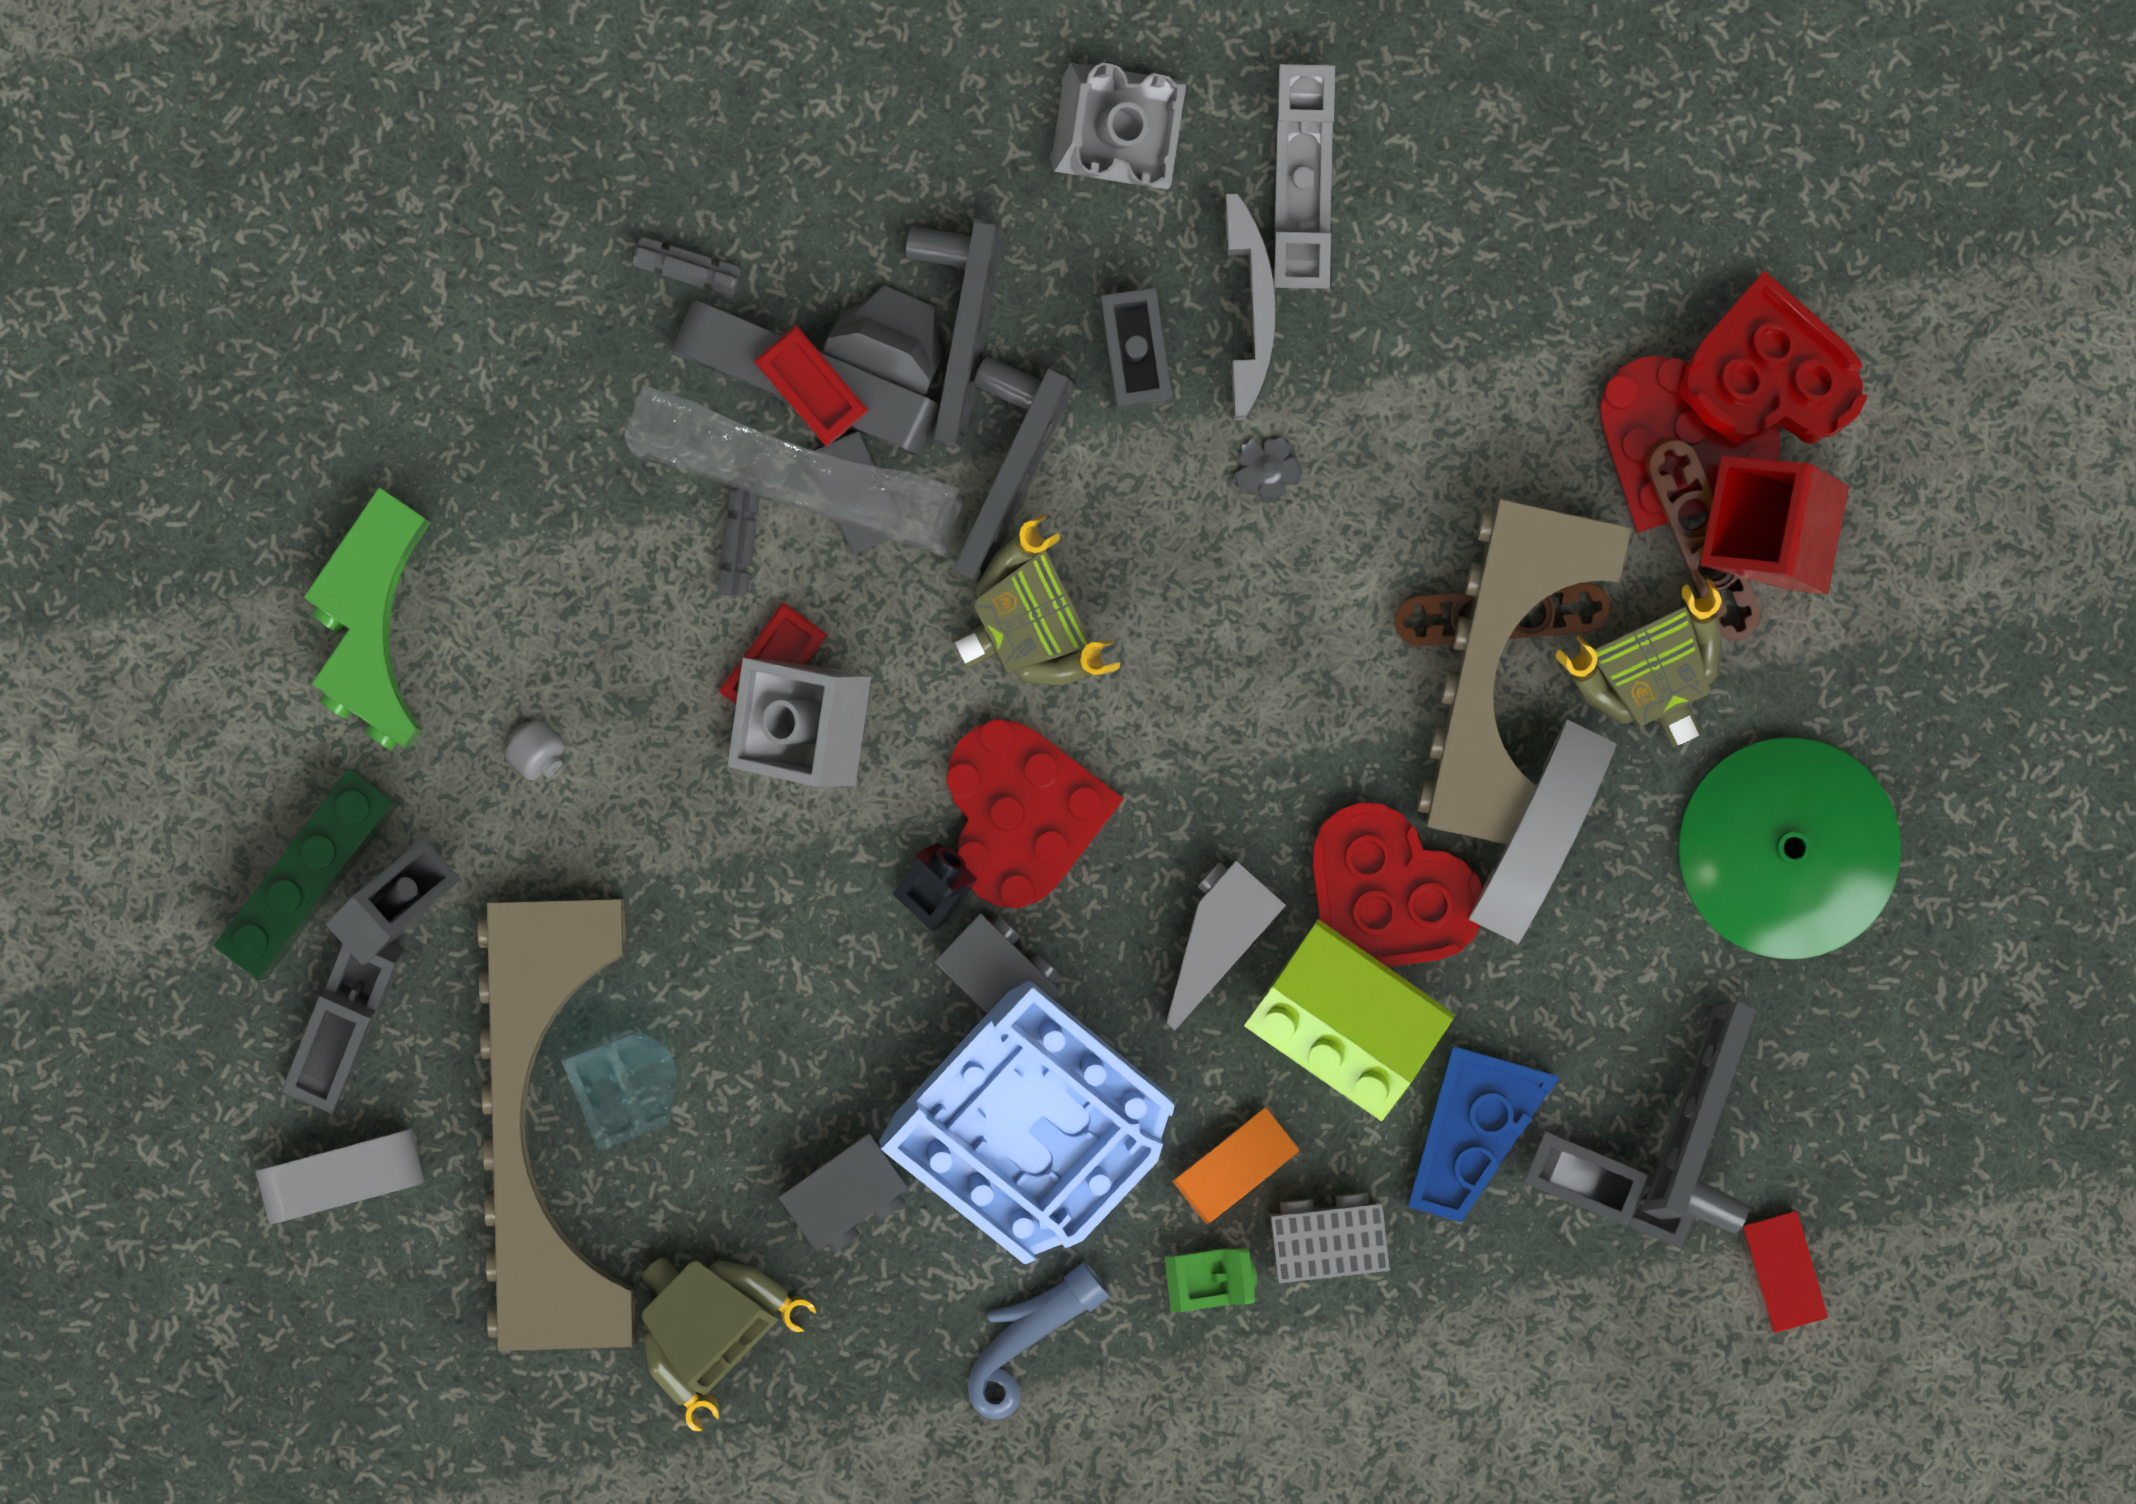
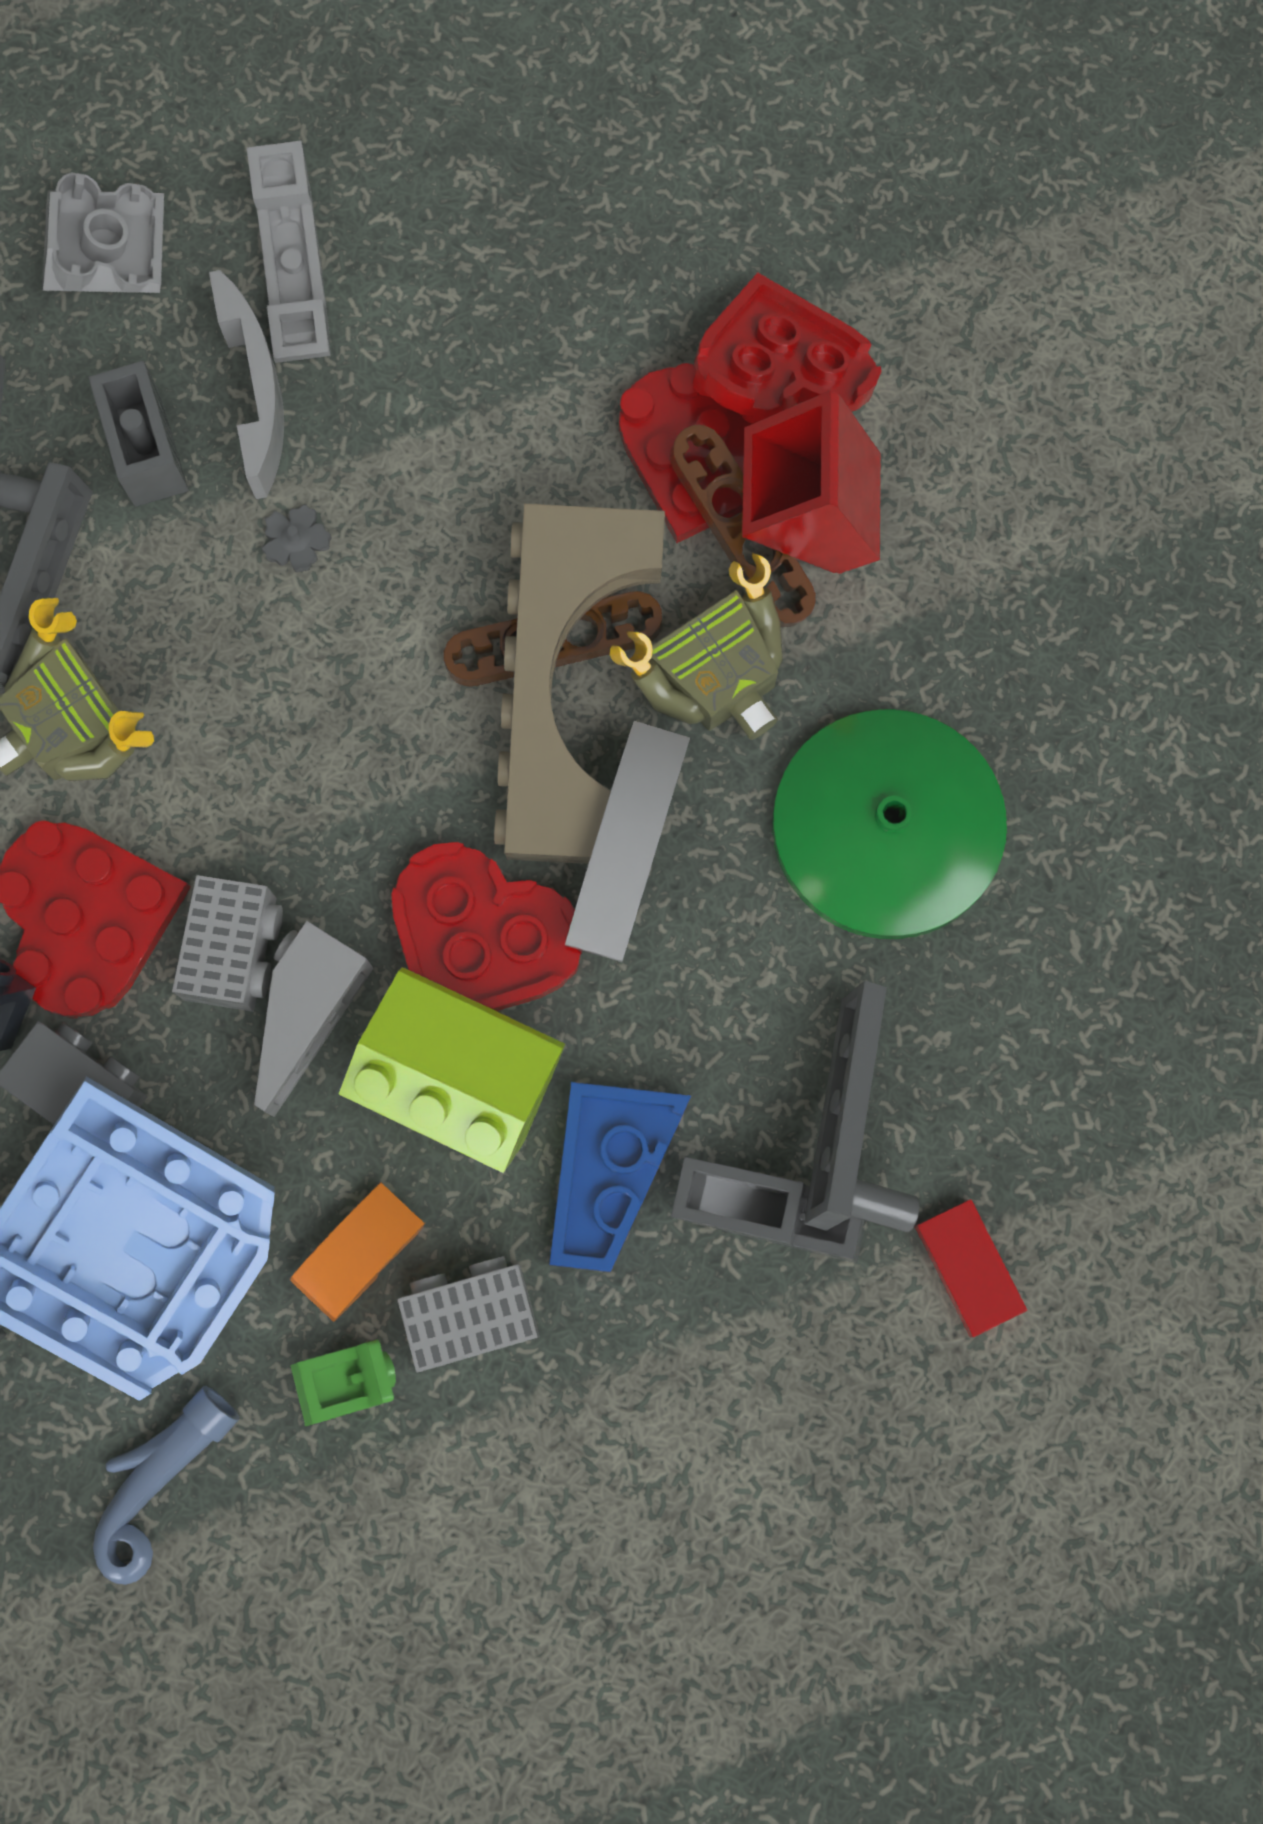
camera: 10 degrees left, 10 degrees down
(1156, 865) = (227, 944): none -> light grey brick

